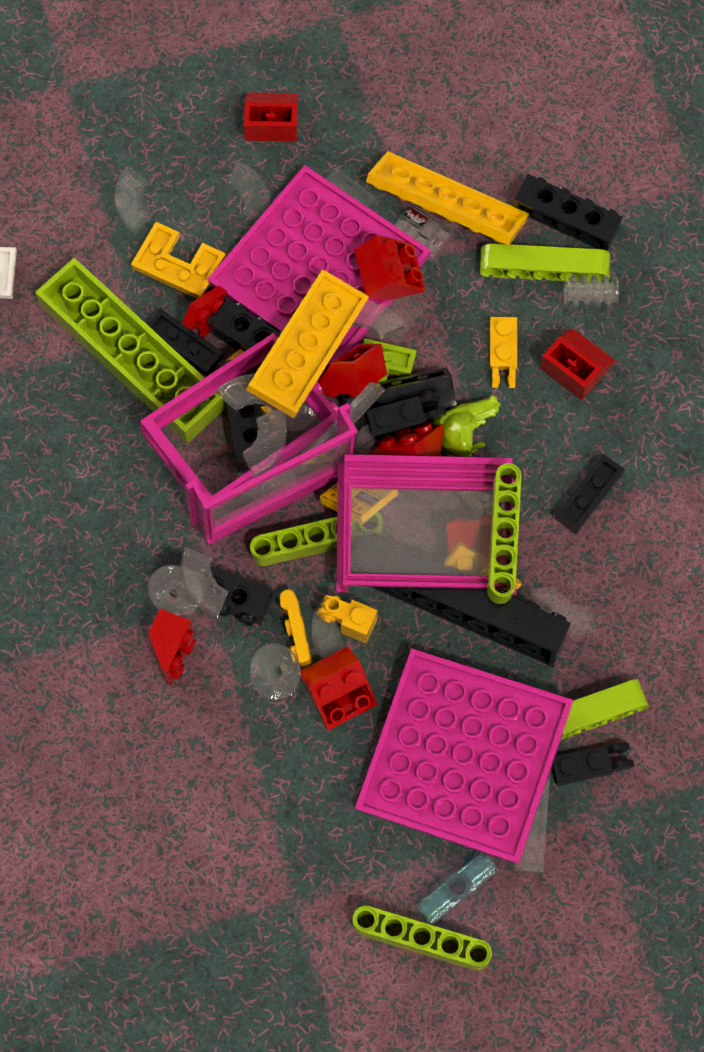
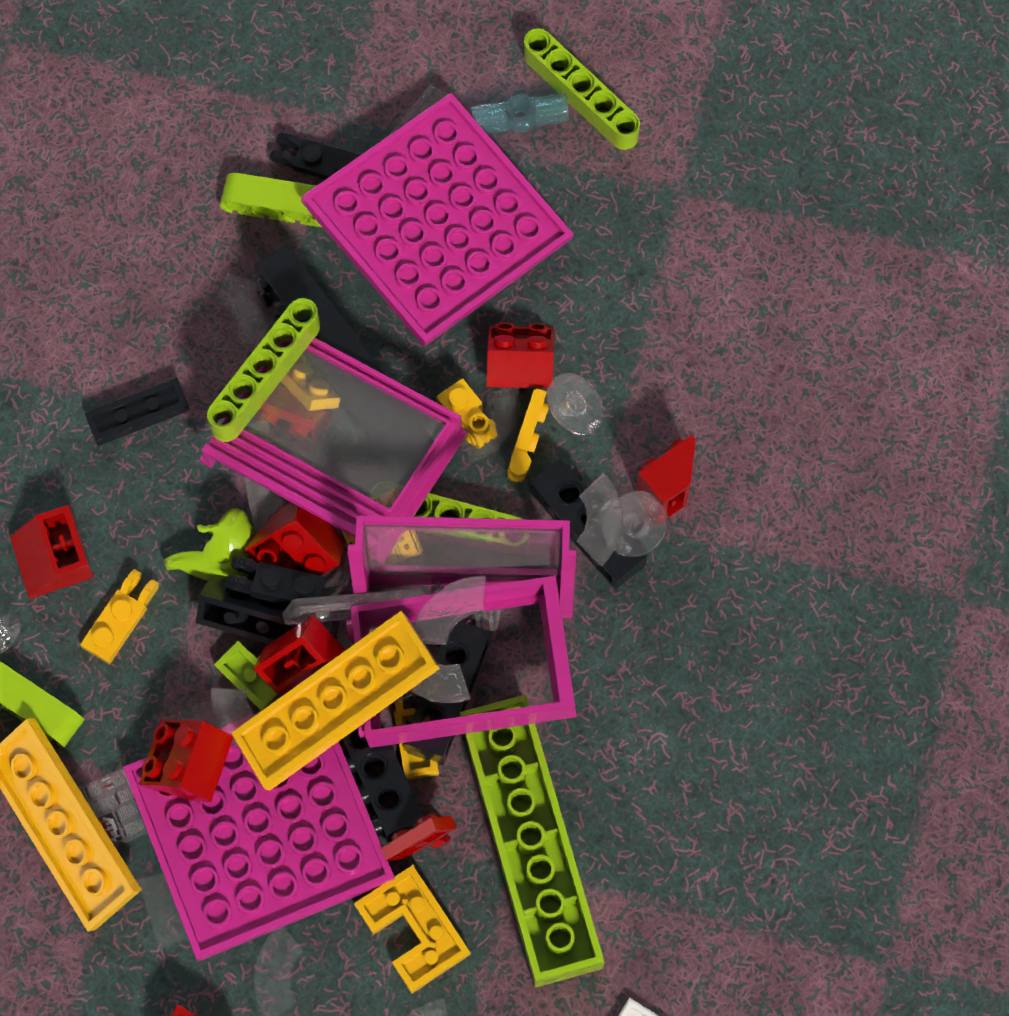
camera: 150 degrees left, 0 degrees up
(186, 342) = (470, 836): black plate -> none

